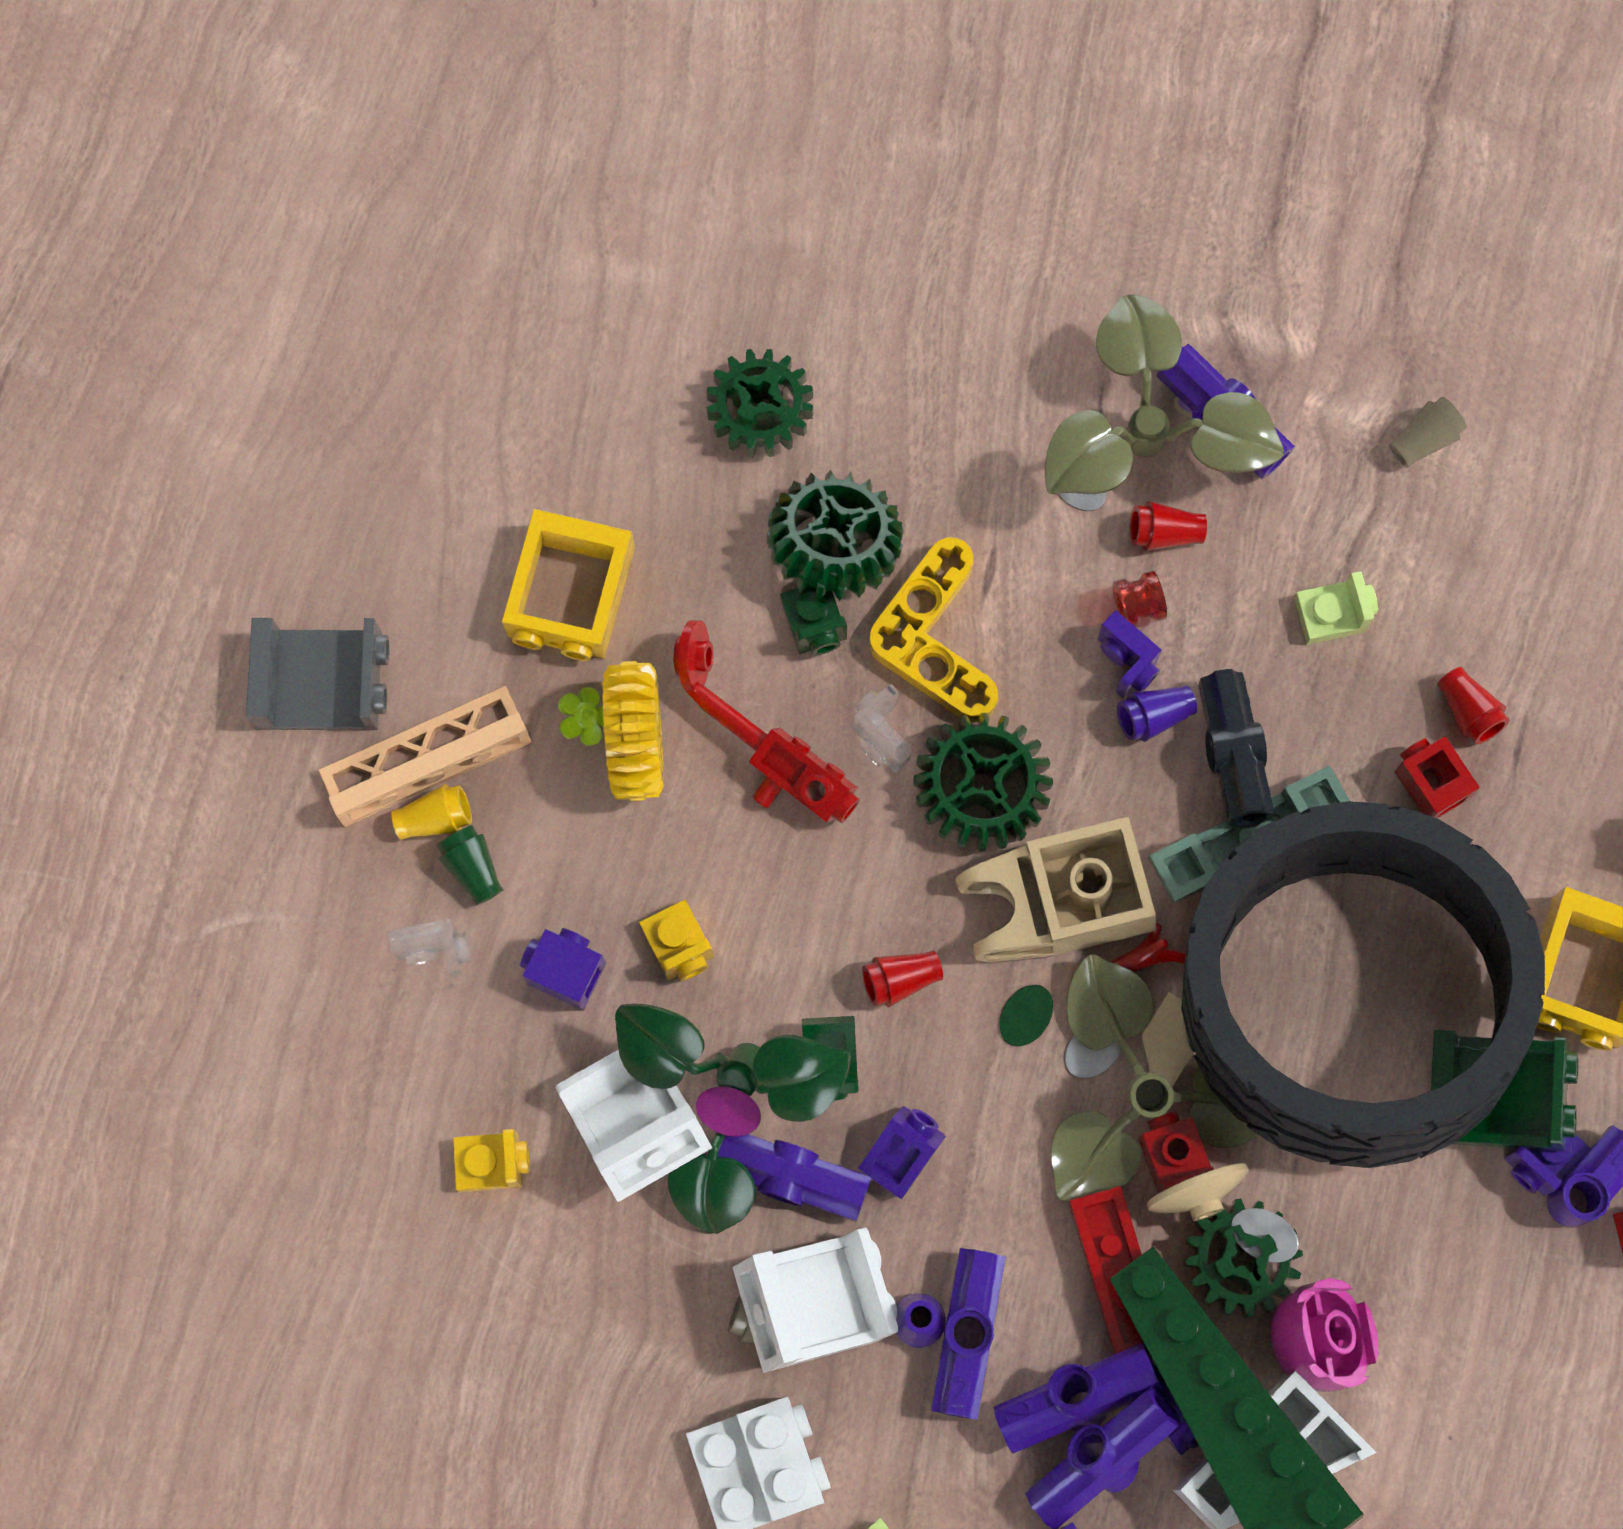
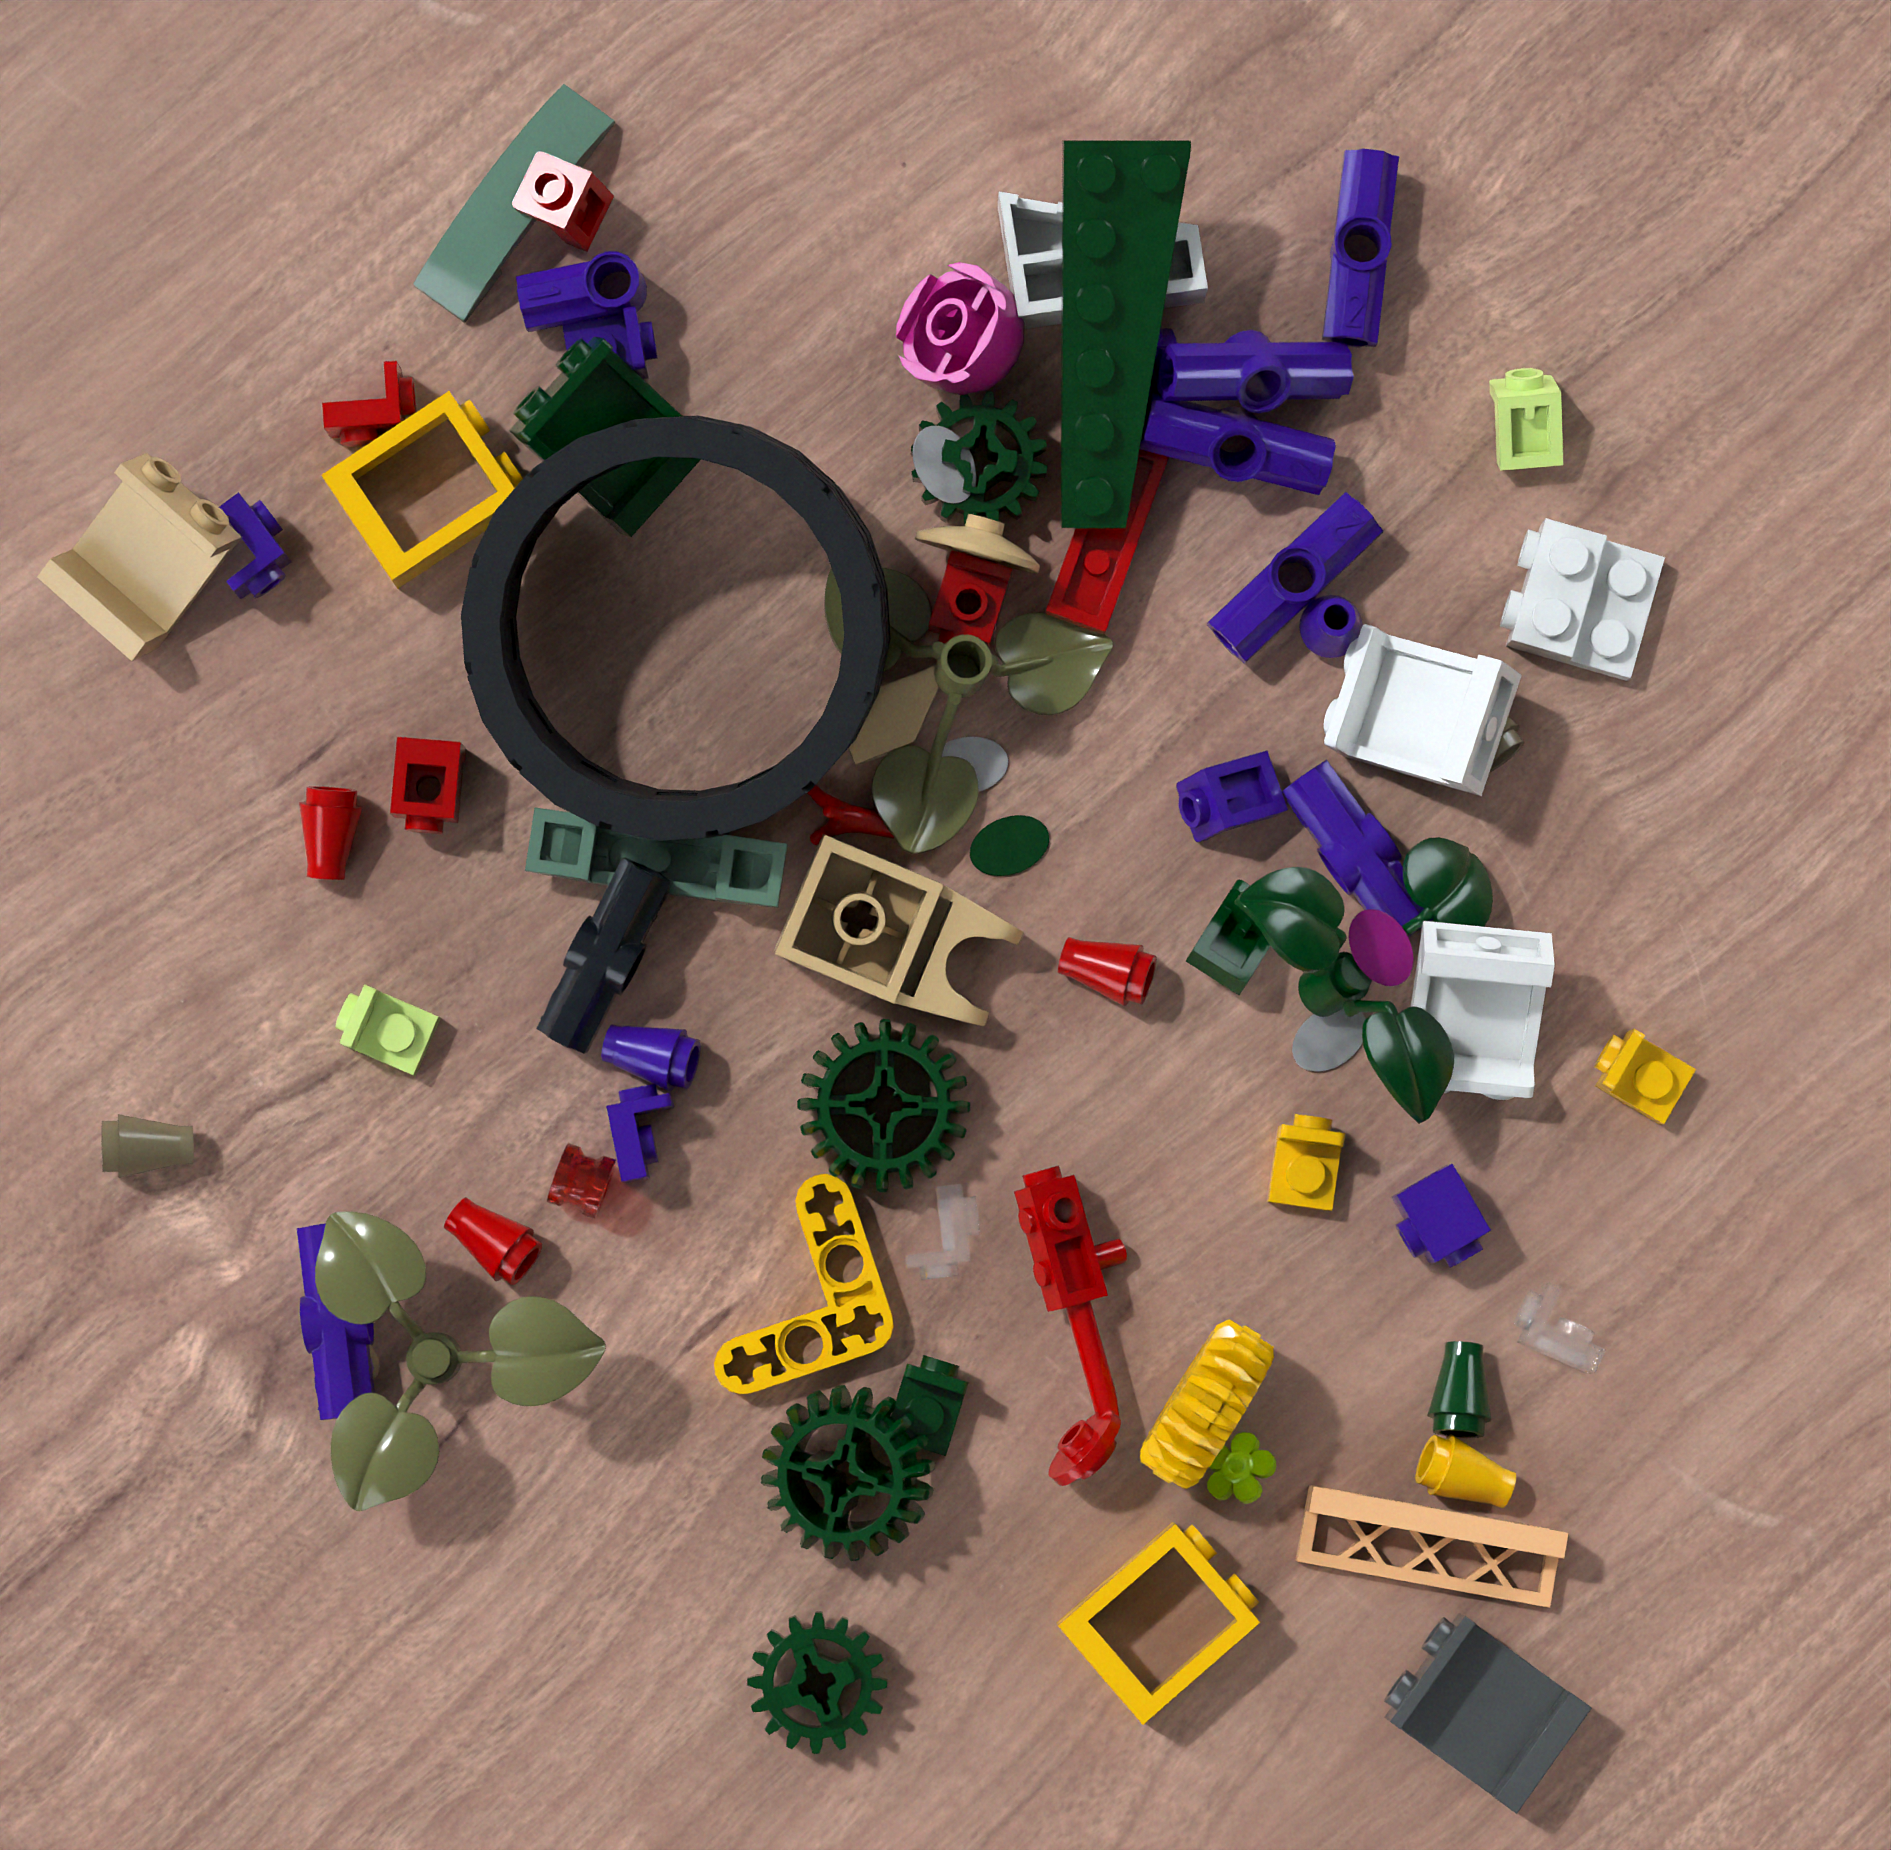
camera: 150 degrees left, 10 degrees up
(722, 1033) = (1327, 1041): none -> flat silver sticker

